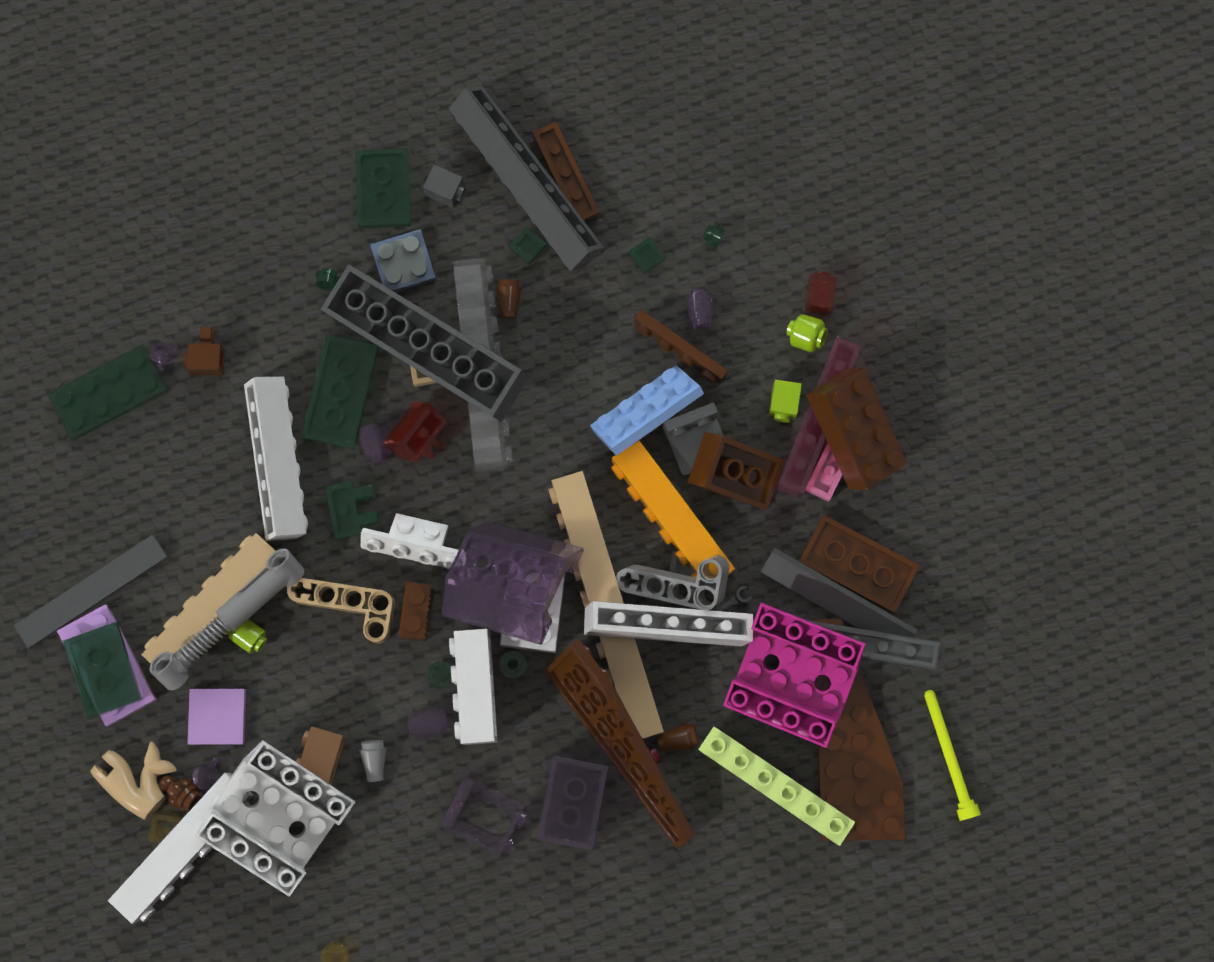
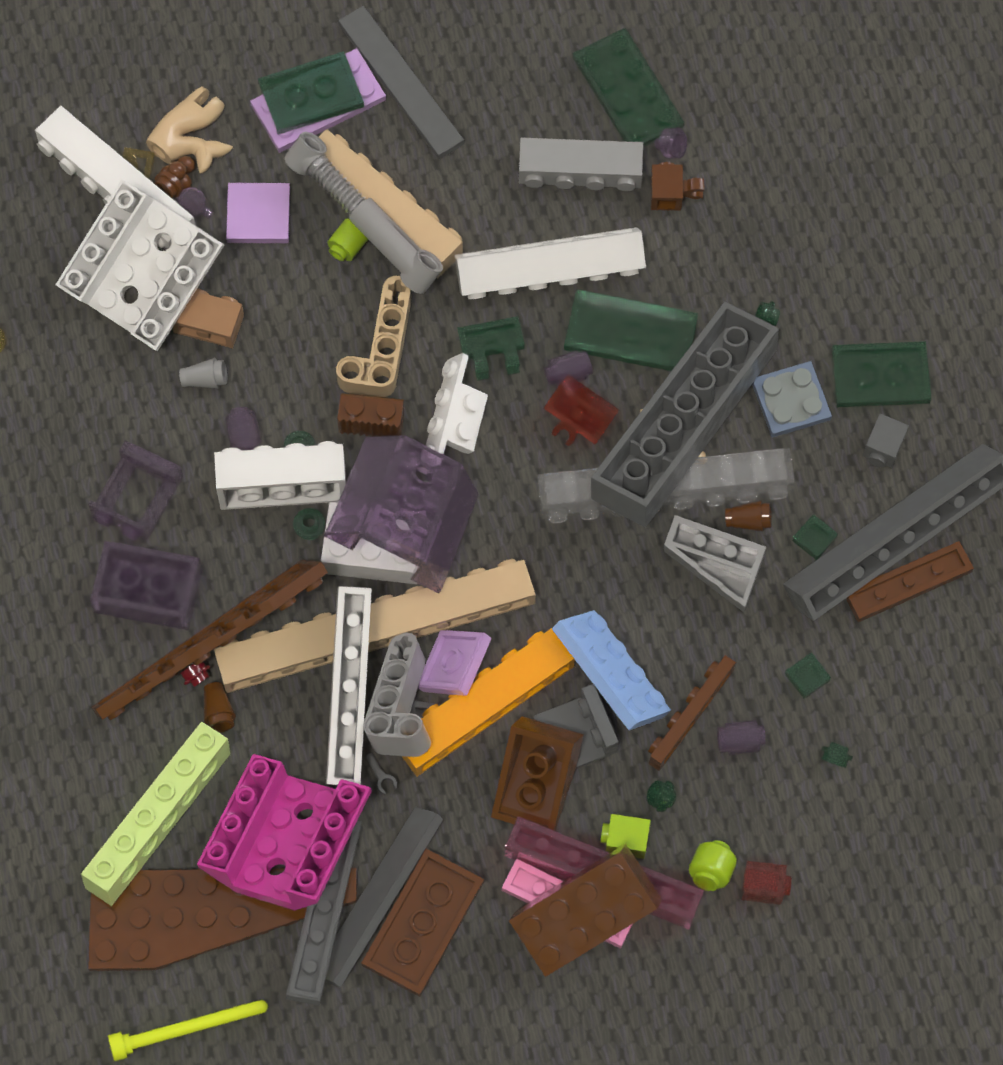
camera: 90 degrees right, 10 degrees down
(180, 432) = (580, 163): none -> light grey brick
(550, 320) = (716, 558): none -> light grey wedge
(641, 538) = (454, 662): none -> lavender tile
(746, 377) = (661, 795): none -> clear green plate

